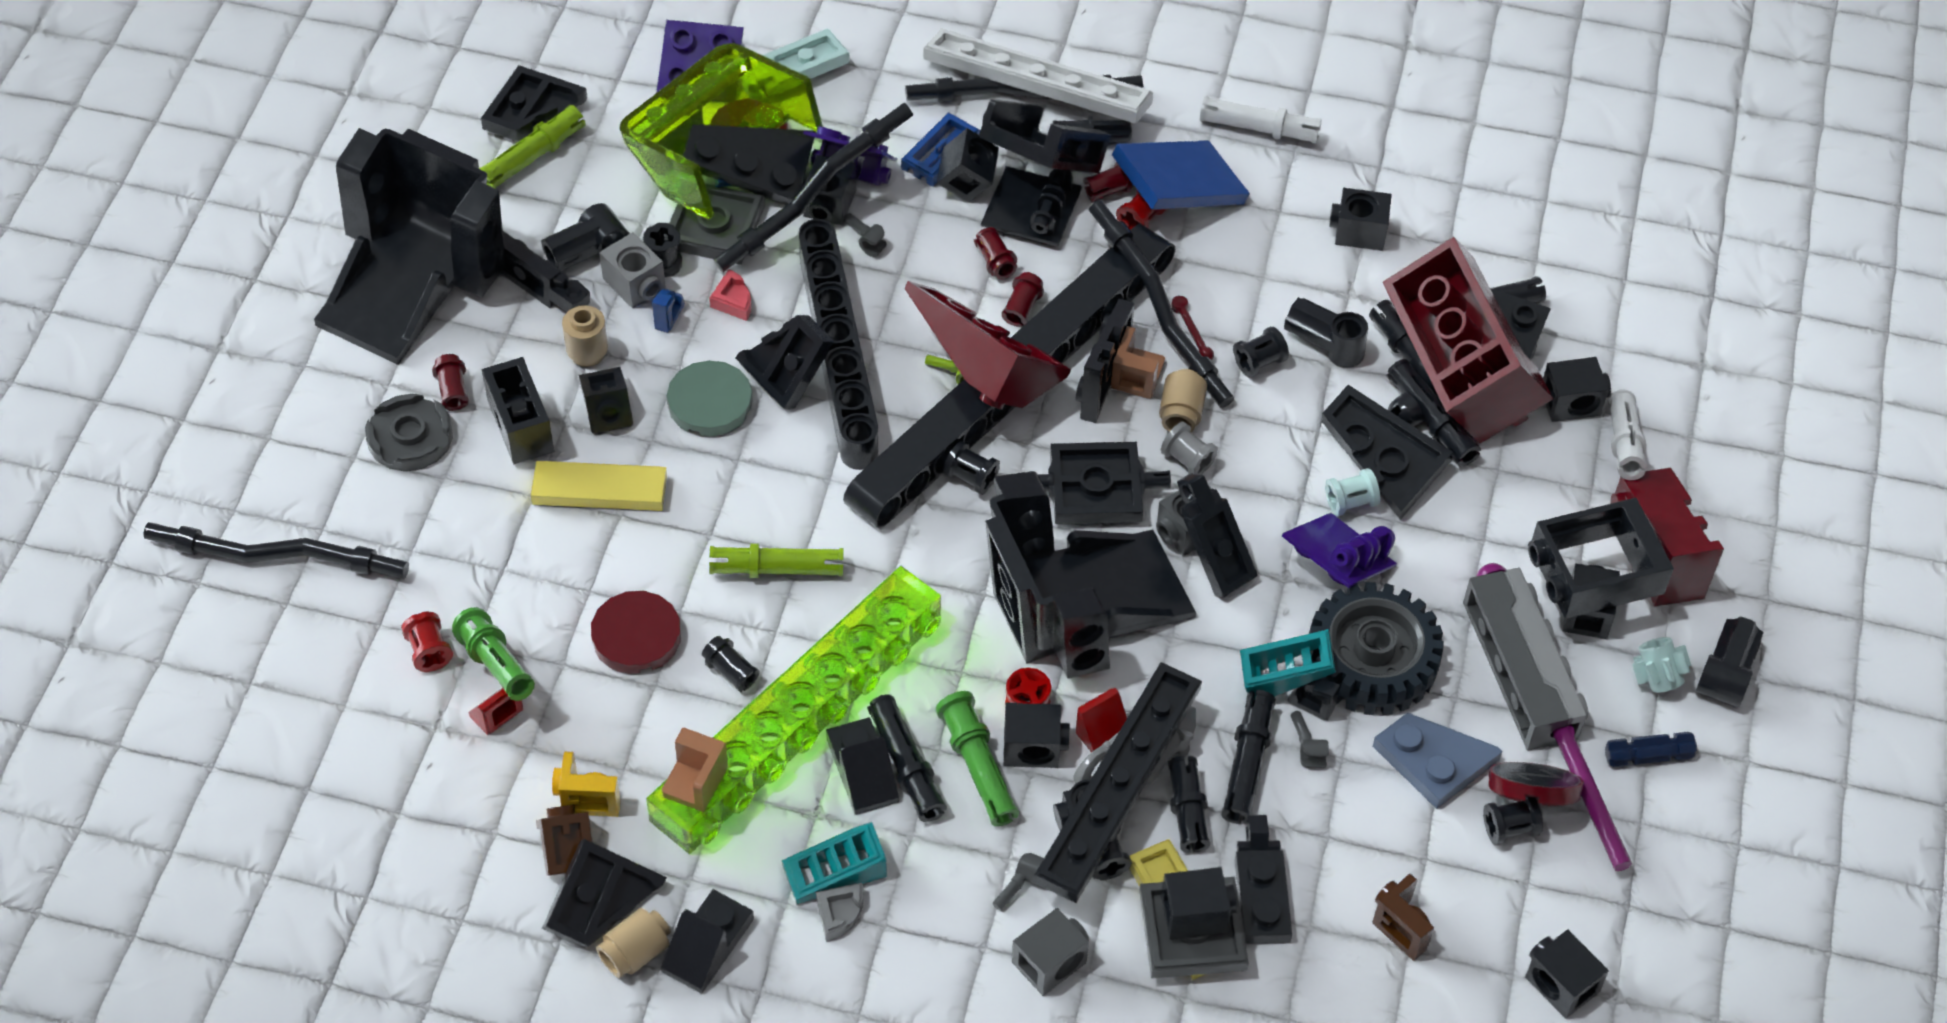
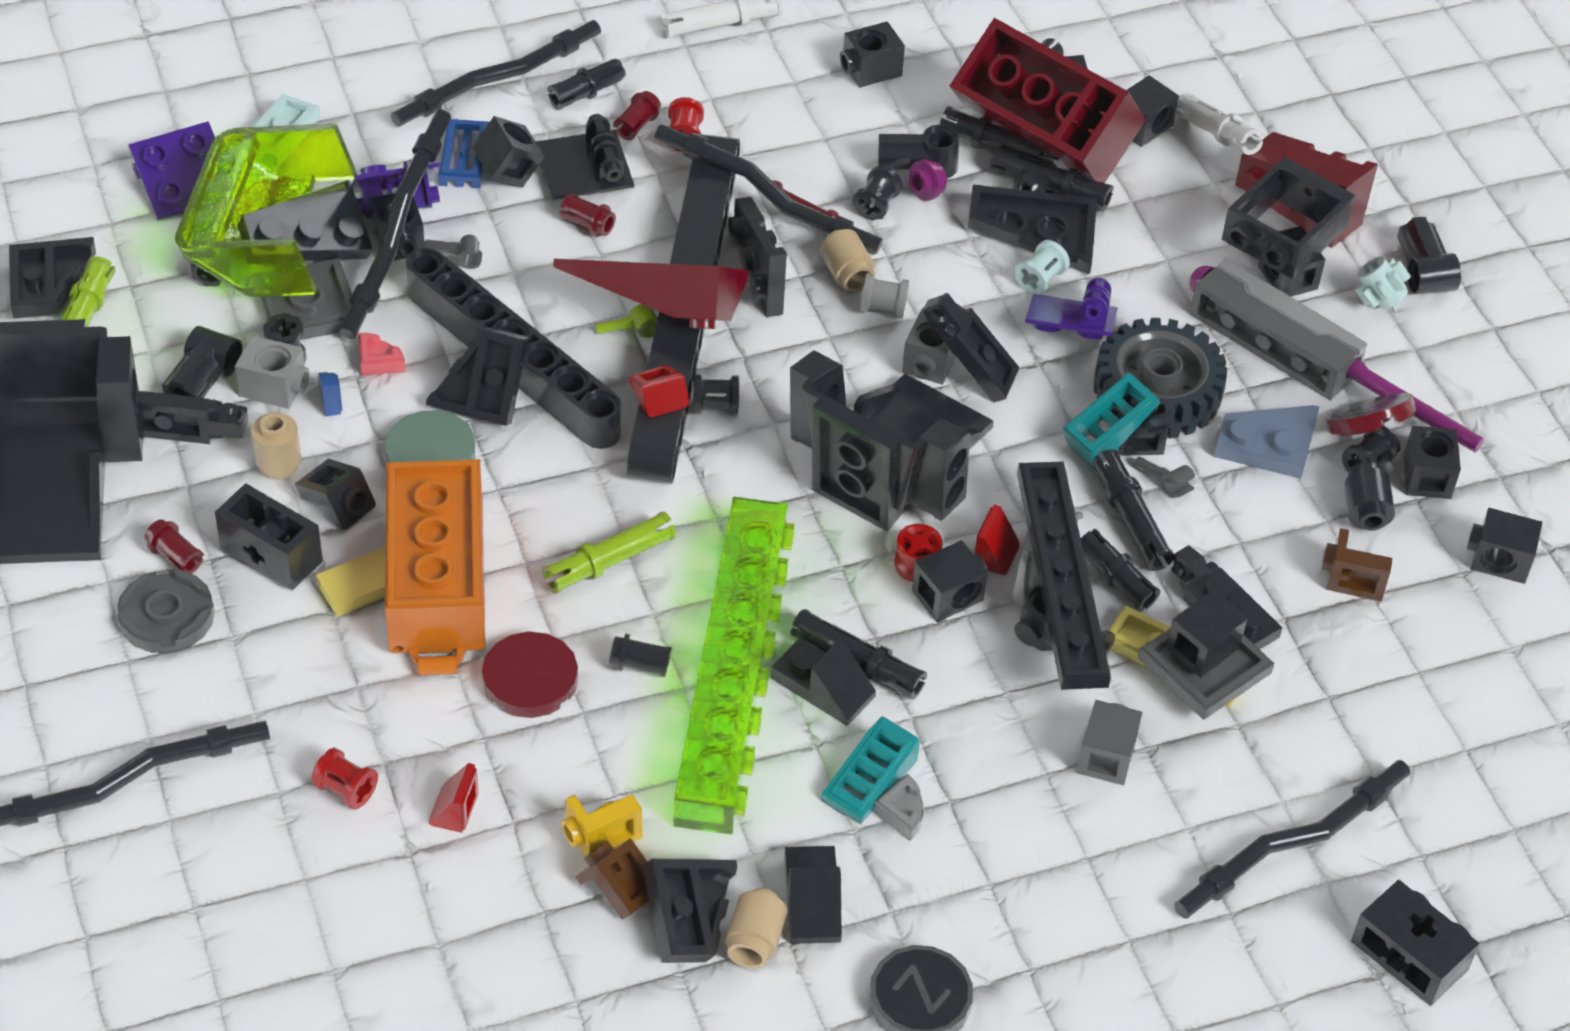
camera: 35 degrees left, 5 degrees down
(492, 652) = (413, 748): bright green pin -> none
(625, 496) = (434, 562): none -> orange container
(697, 770) = (706, 747): nougat panel -> none
(914, 441) = (660, 390): none -> red slope
(971, 741) = (900, 611): bright green pin -> none
(1024, 872) = (1035, 688): dark grey hand -> none
(1027, 289) = (641, 233): dark red pin -> none
(1038, 75) = (505, 54): white tile -> none
(1064, 147) = (602, 91): black panel -> none
(1099, 482) = (839, 340): black plate -> none
(1135, 369) = (799, 252): nougat panel -> none
(1180, 174) = (698, 81): blue tile -> none
(1315, 360) = (927, 179): none -> magenta plate
(1474, 859) = (1369, 496): none -> black brick
(1557, 873) = (1431, 462): none -> black brick
(1650, 749) = (1421, 351): dark blue axle -> none

